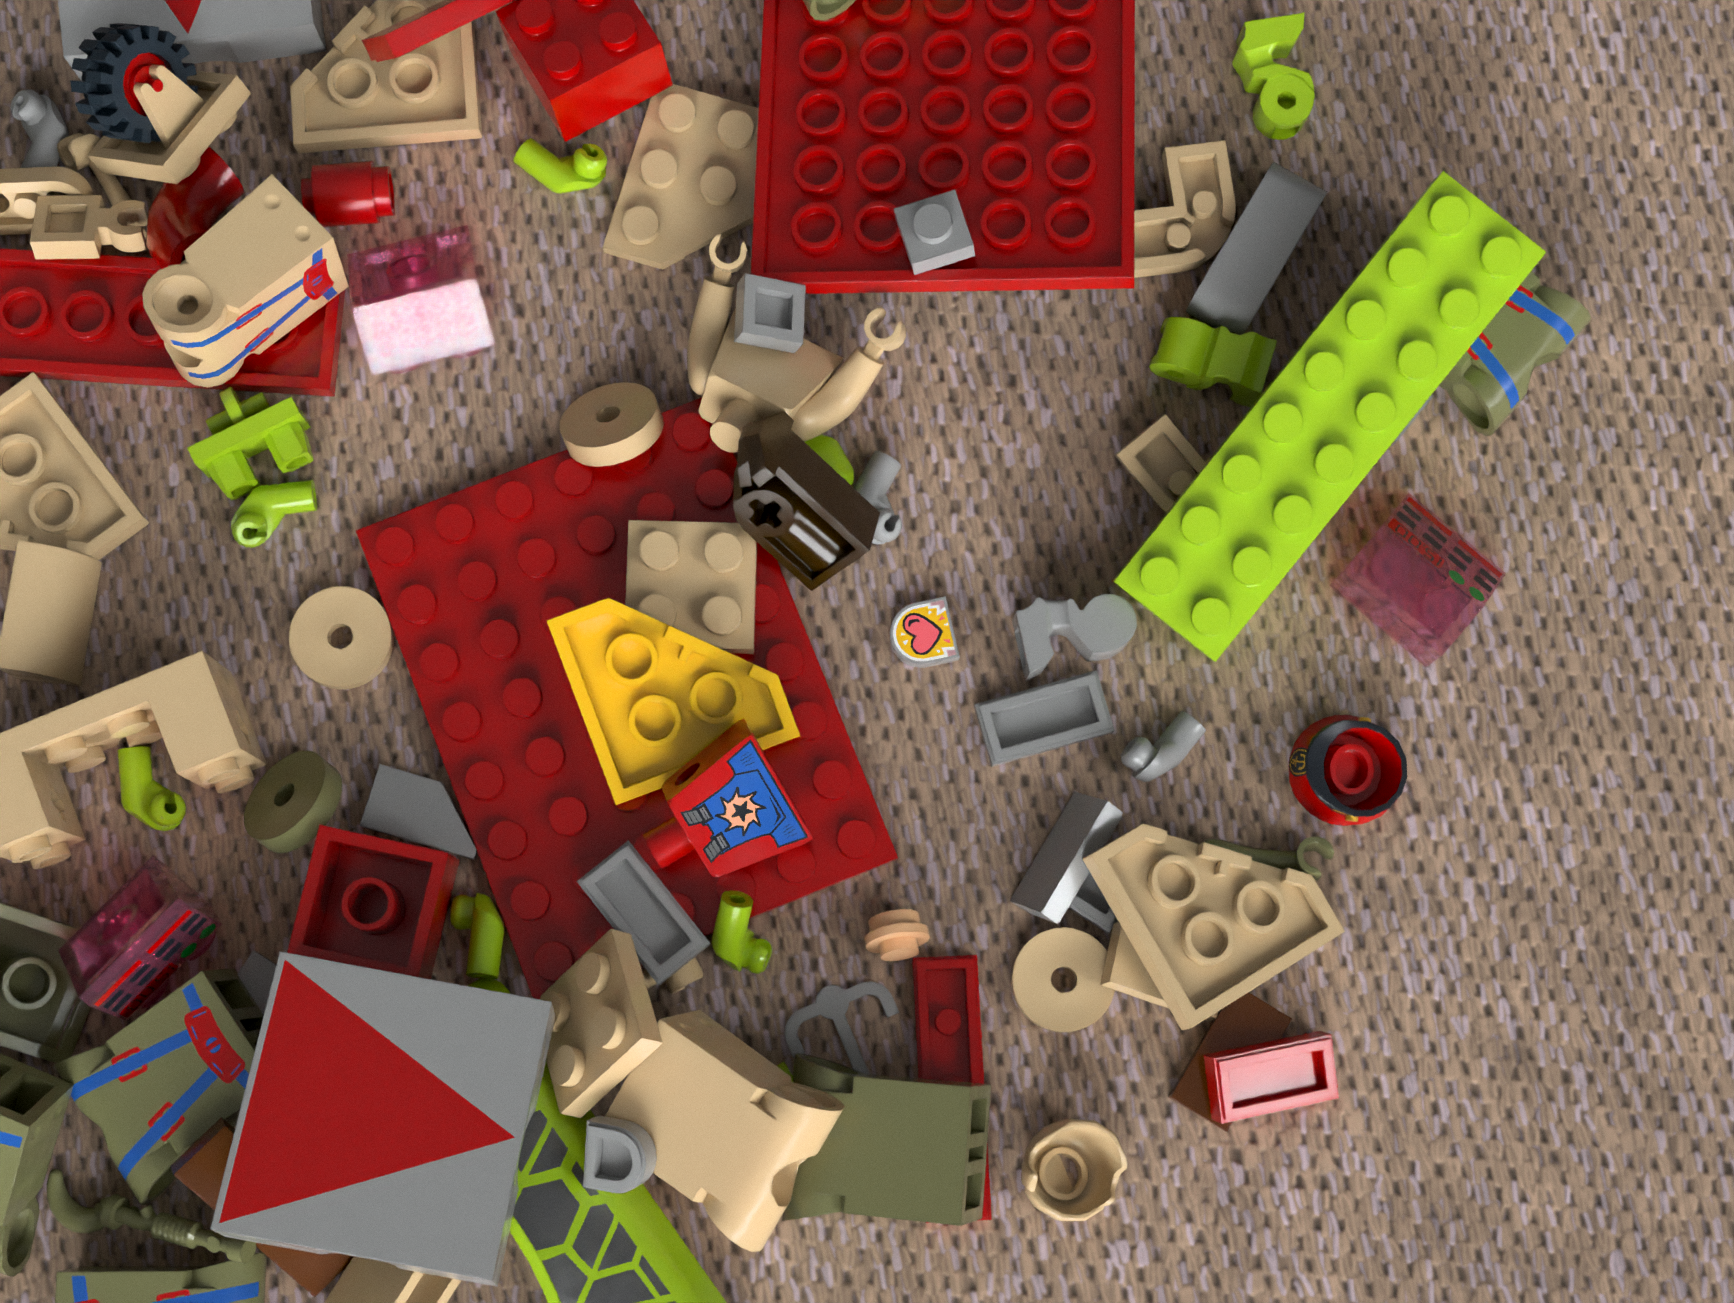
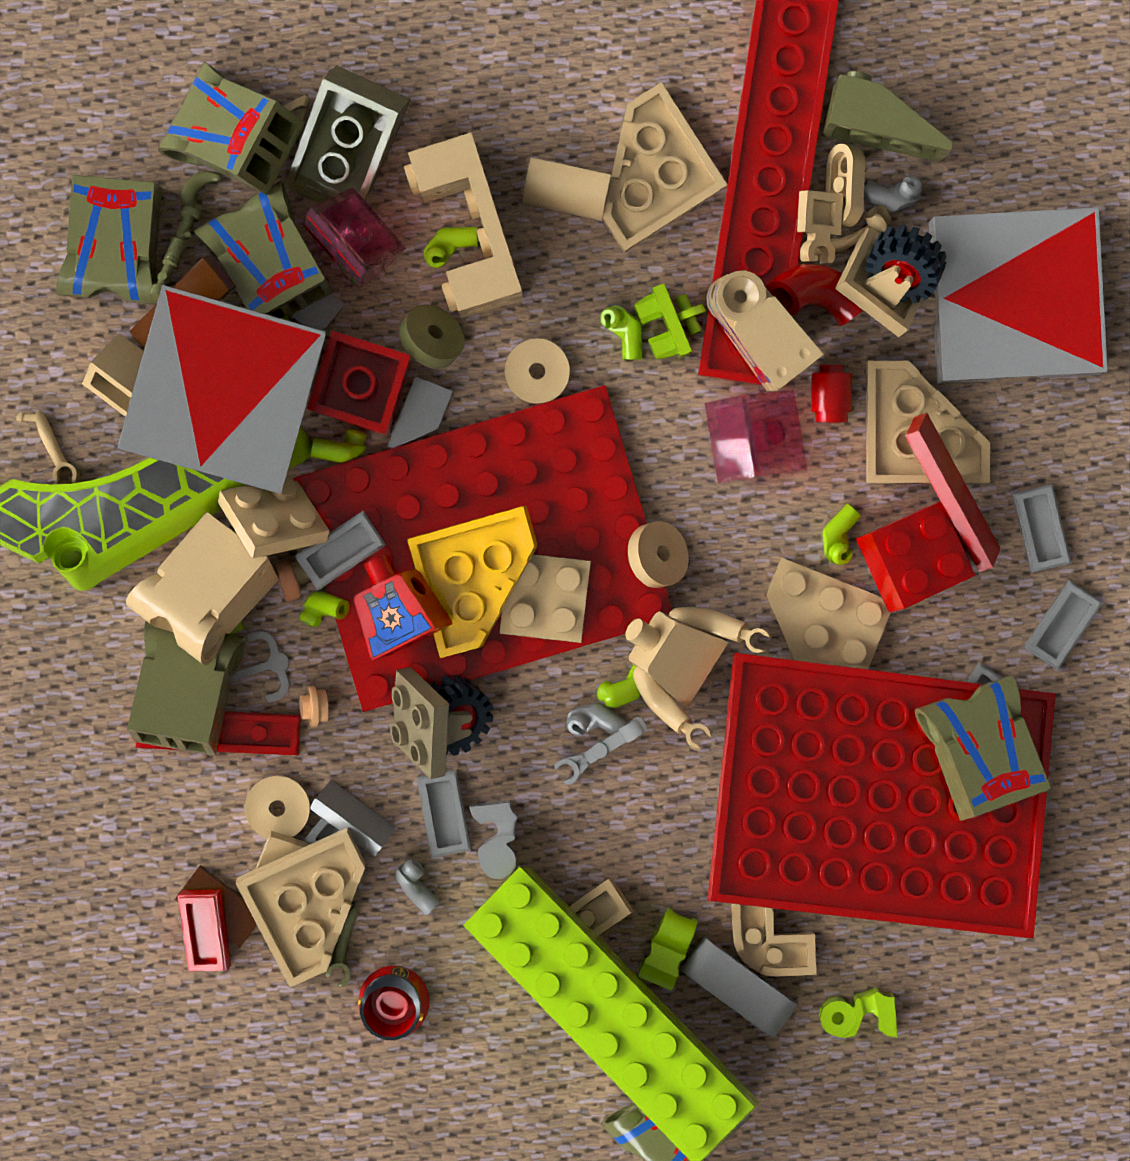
camera: 100 degrees right, 10 degrees up
(617, 1155) = (190, 524): light grey tile -> none
(701, 993) = (287, 580): none -> nougat tile
(769, 313) = (714, 663): light grey plate -> none
(798, 503) = (588, 672): dark brown piece -> none
(889, 444) = (582, 760): none -> light grey piece
(897, 736) = (437, 718): none -> dark tan plate
(924, 634) = (505, 742): tile -> none
(934, 232) = (755, 775): light grey plate -> none
(1098, 1163) = (156, 784): tan hair -> none
(1418, 581) = (510, 1065): clear pink slope -> none

